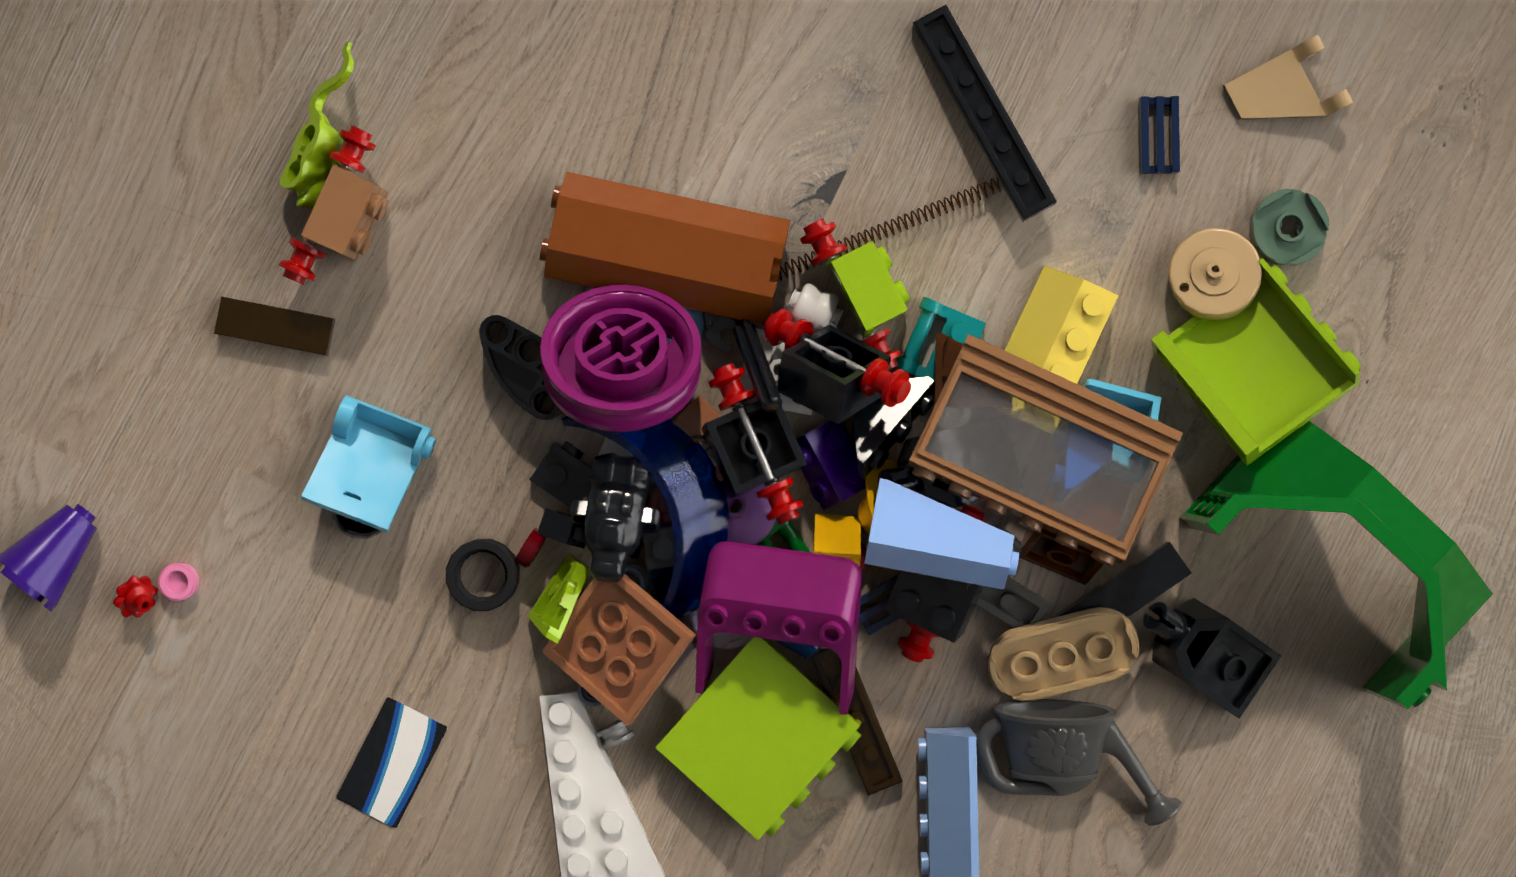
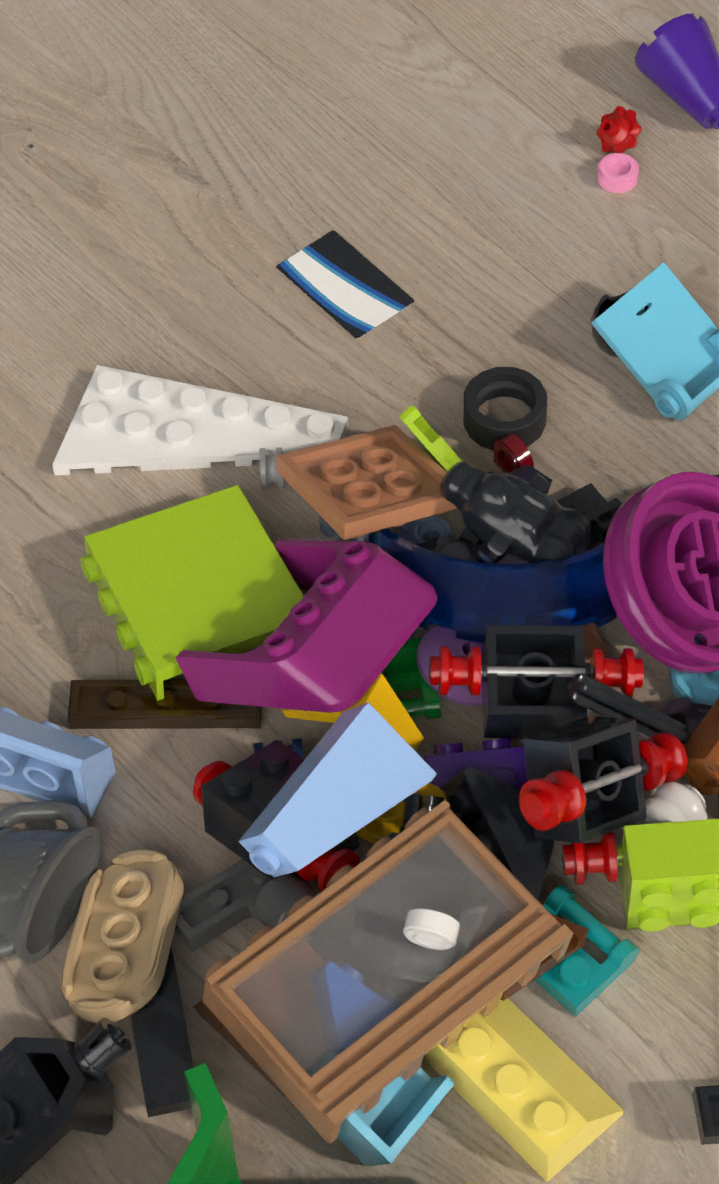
camera: 120 degrees right, 35 degrees down
(1024, 425) = (431, 929): none -> white tile

